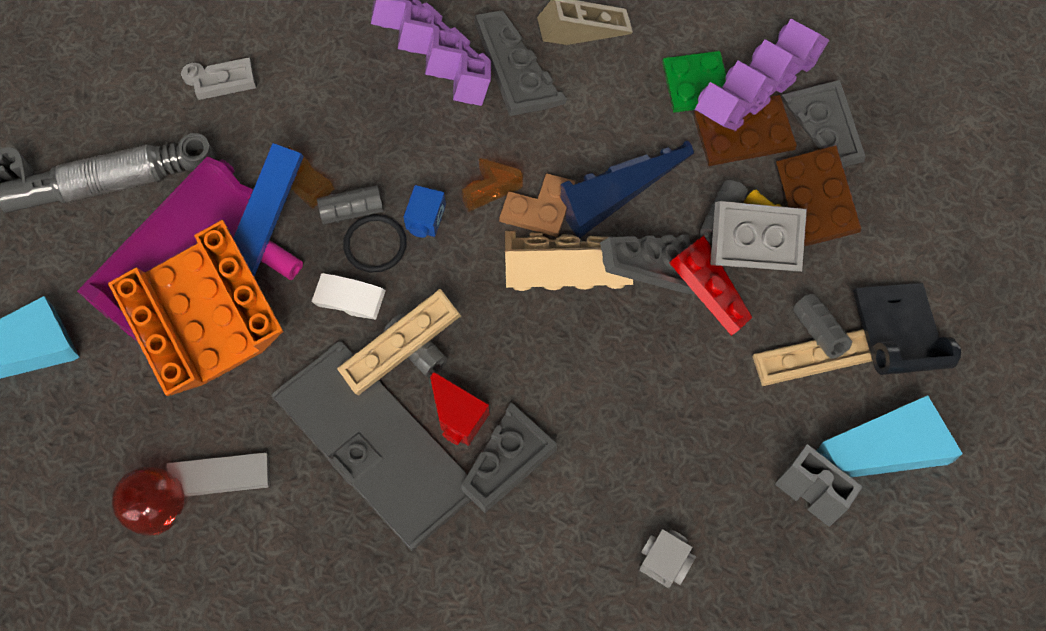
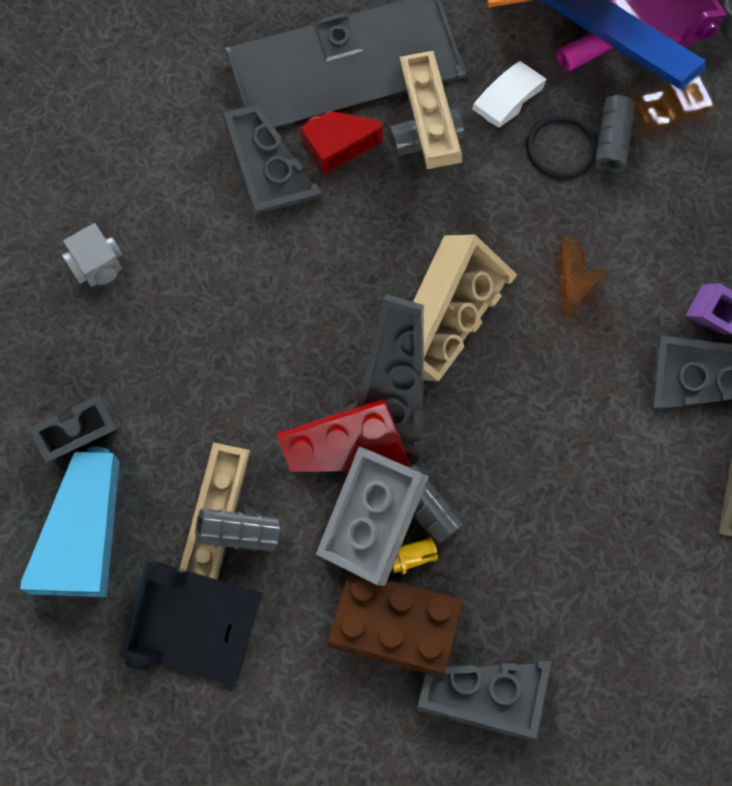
camera: 115 degrees right, 5 degrees up
(424, 211) = (572, 198): blue brick -> none
(539, 214) = (519, 321): medium nougat plate -> none
(604, 194) = (506, 382): dark blue wedge -> none
(689, 75) = (616, 572): green plate -> none
(759, 135) = (524, 592): reddish brown plate -> none
(771, 70) = (586, 656): medium lavender brick -> none

